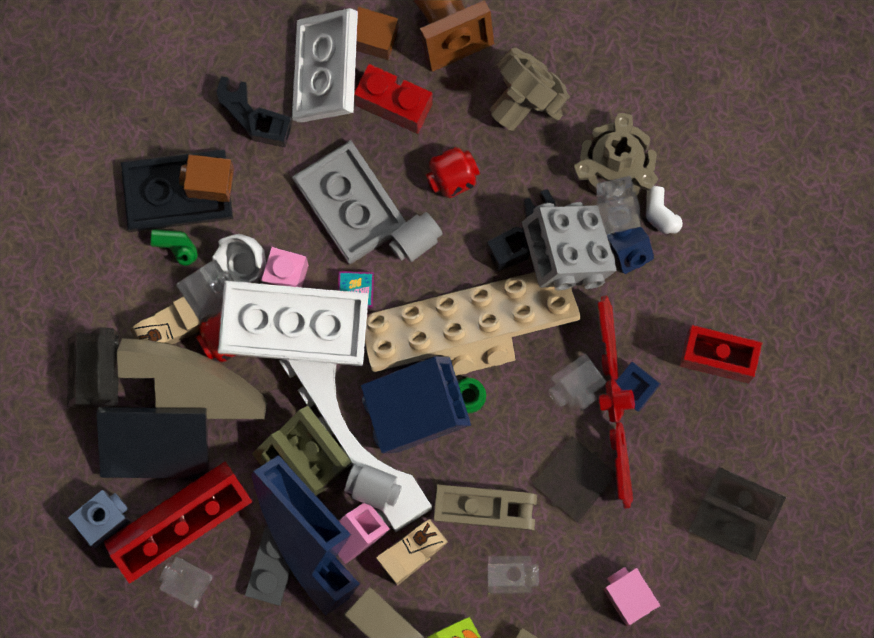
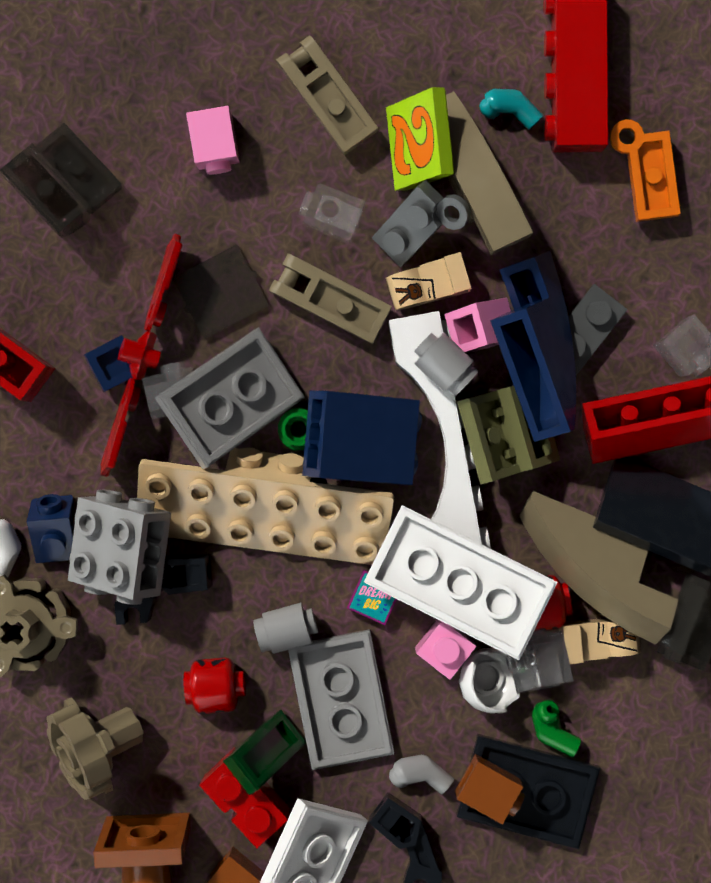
camera: 165 degrees left, 10 degrees up
(268, 173) = (419, 769): none -> light grey arm
(392, 137) = (264, 752): none -> dark green tile
(439, 595) = (417, 222): none -> dark grey hinge
(531, 395) = (230, 398): none -> light grey tile
(618, 205) = (44, 570): clear brick -> none

